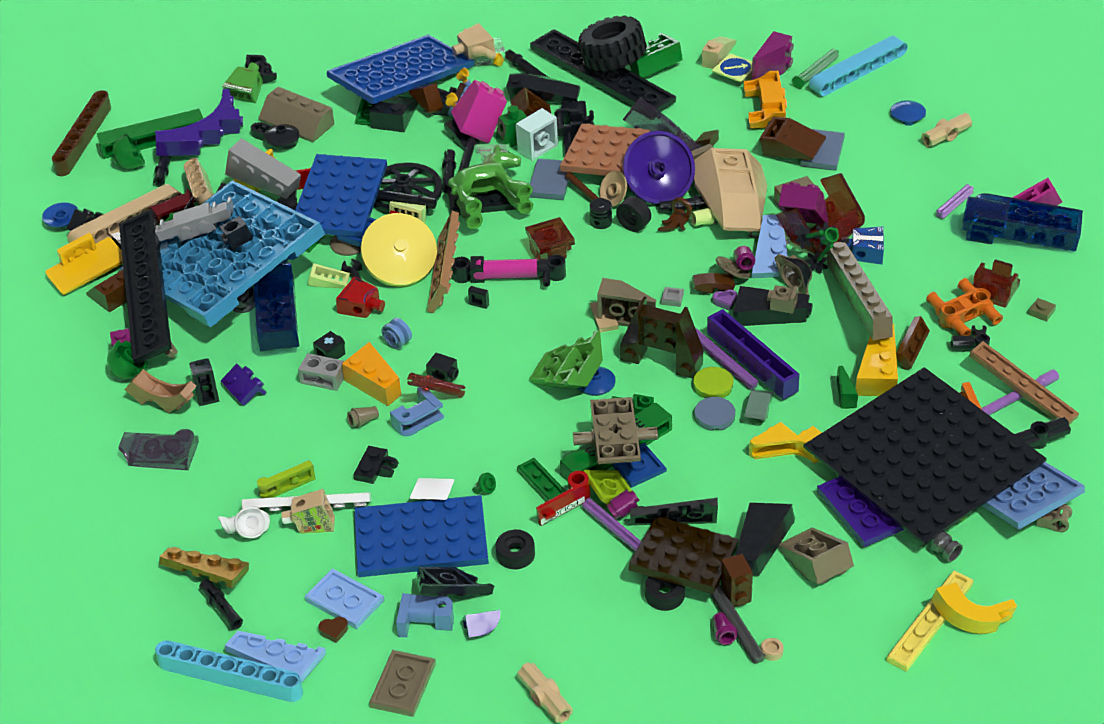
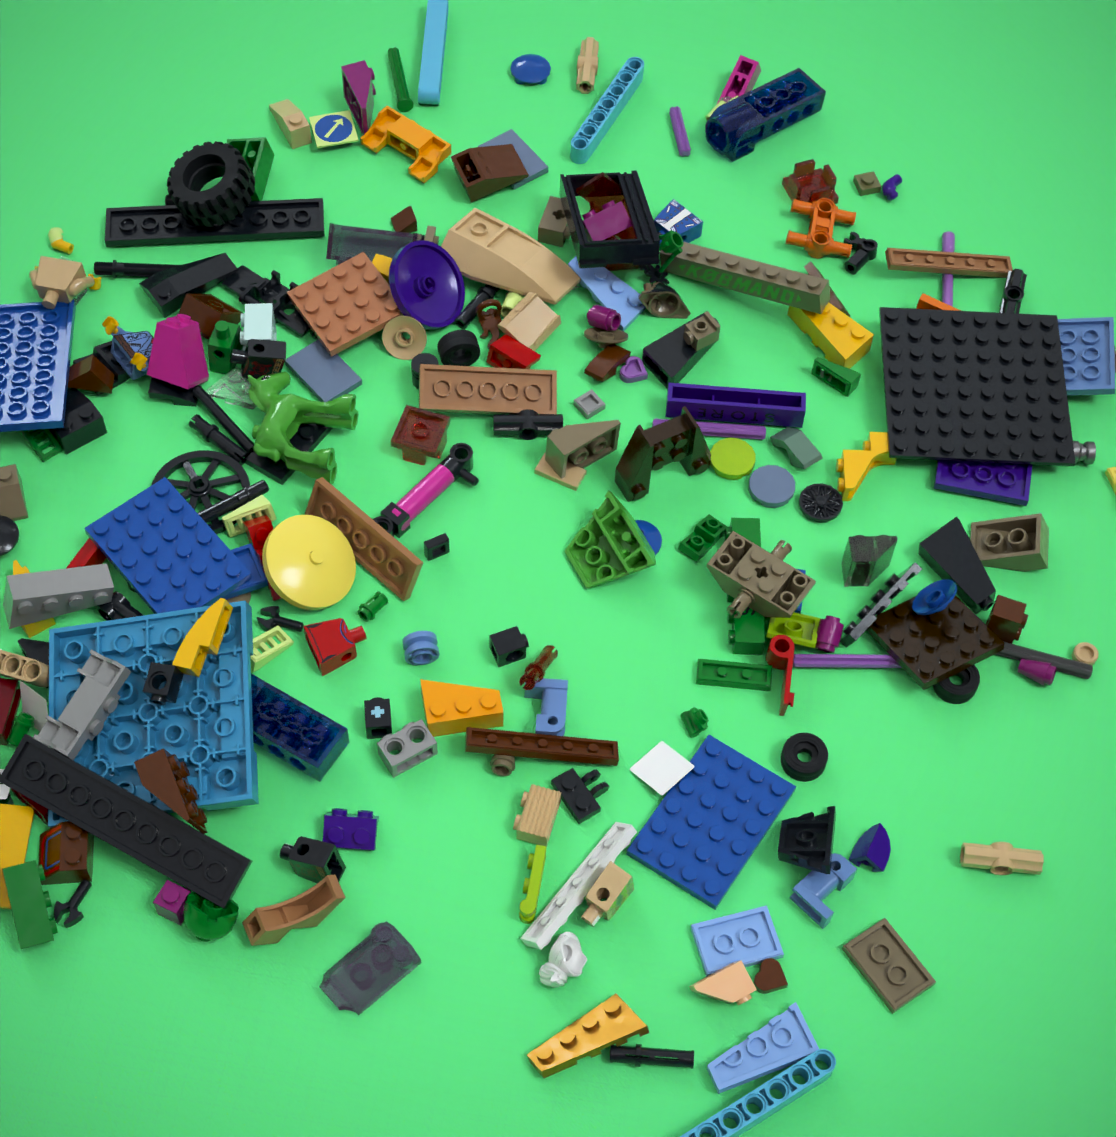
camera: 55 degrees left, 15 degrees up
(65, 289) = (29, 904): none -> green wedge
(78, 314) = (72, 905): none -> black bar
(173, 279) = (168, 781): none -> reddish brown slope
(277, 223) = (203, 638): none -> yellow slope
(303, 605) = (727, 984): none -> light nougat slope
(336, 454) = (538, 815): none -> tan brick
(385, 424) = (541, 746): none -> reddish brown tile
(405, 299) = (368, 610): none -> green pin
(511, 26) = (57, 242): none -> arm
(518, 142) = (260, 357): none -> black torso
(584, 189) = (373, 358): reddish brown bar -> none
(610, 271) = (526, 424): none -> black piece
(617, 243) = (486, 389): none -> medium nougat plate
(661, 238) = (510, 353): none -> red panel
(694, 230) = (530, 321): none -> tan slope
(703, 481) = (866, 558): none -> clear smoke slope
(707, 533) = (934, 597): none -> blue dish
(730, 443) = (820, 502): none -> black wheel
(798, 222) = (599, 253): none -> black piece
(921, 159) = (606, 110): none -> medium azure beam
(1050, 322) = (890, 185): none -> dark purple arm

